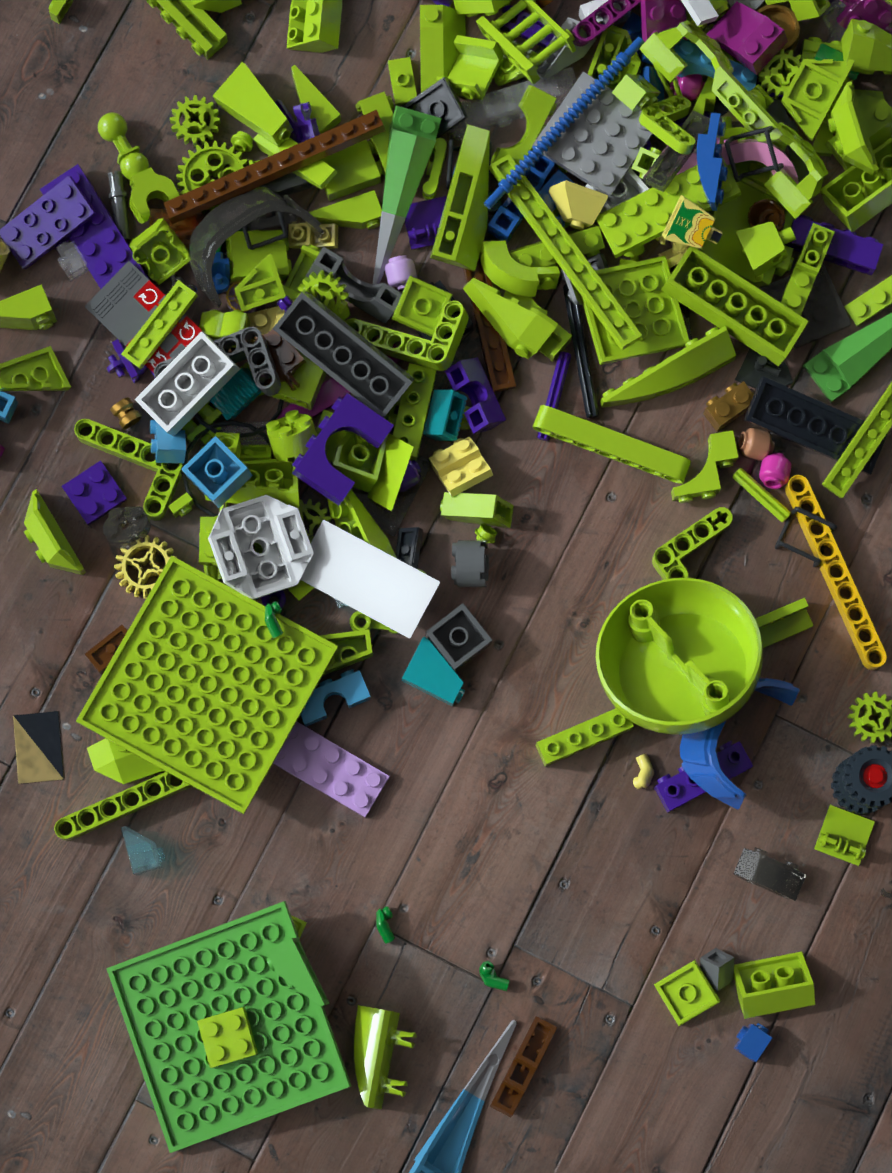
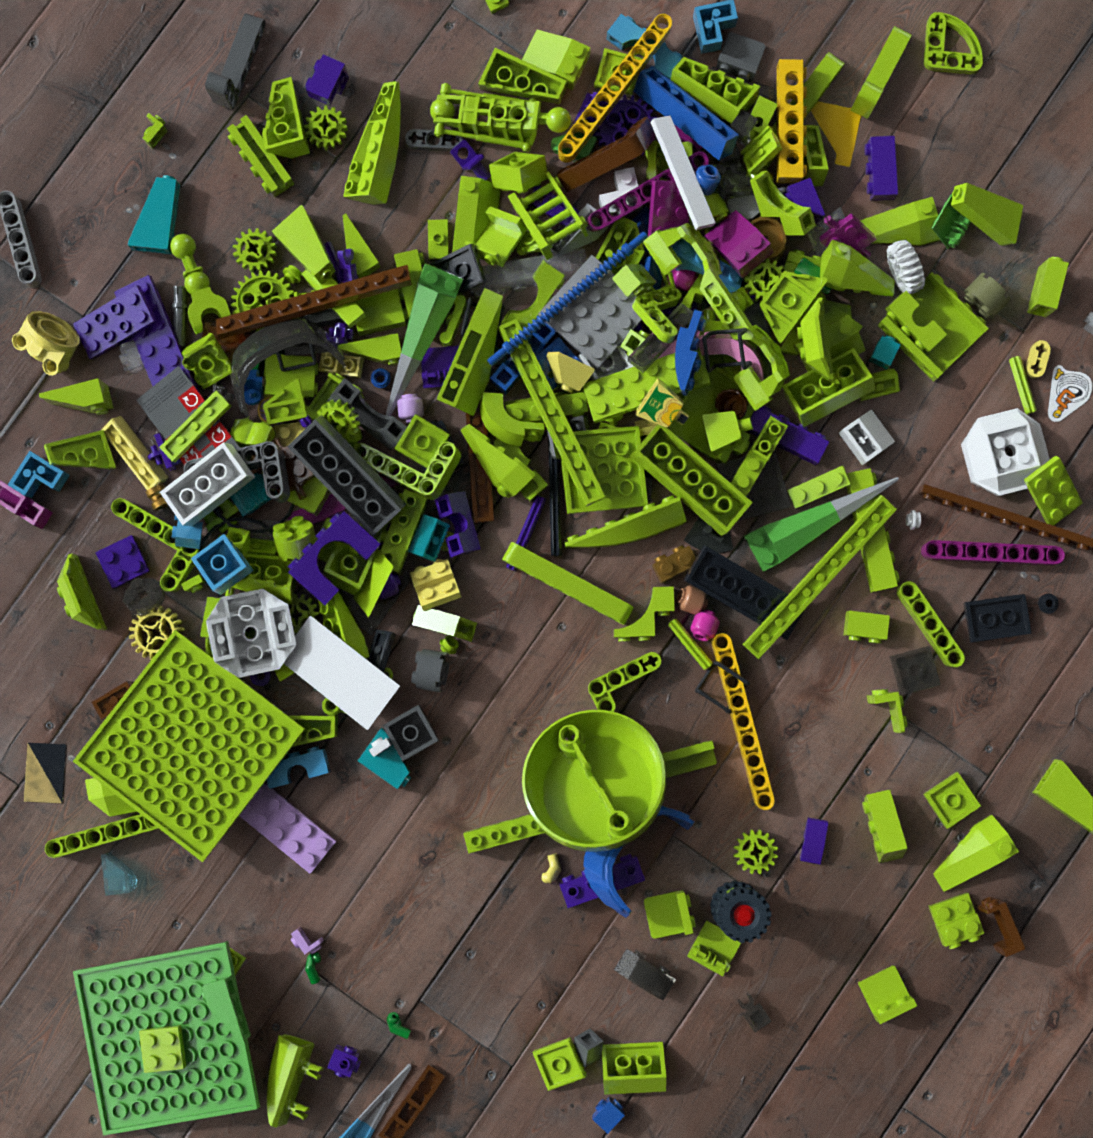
camera: 15 degrees right, 5 degrees up
(78, 101) = (158, 218): none -> teal slope
(89, 368) = (134, 452): none -> light yellow slope
(271, 620) = (249, 698): green arm -> none
(309, 199) = (341, 333): none -> dark purple gear
(357, 239) = (380, 372): none -> blue plate
(366, 895) = (301, 941): none -> lavender bracket
(426, 655) = (379, 746): none -> white plate
(430, 1020) = (339, 1066): none -> dark purple brick
(786, 803) = (669, 914): none -> lime bracket

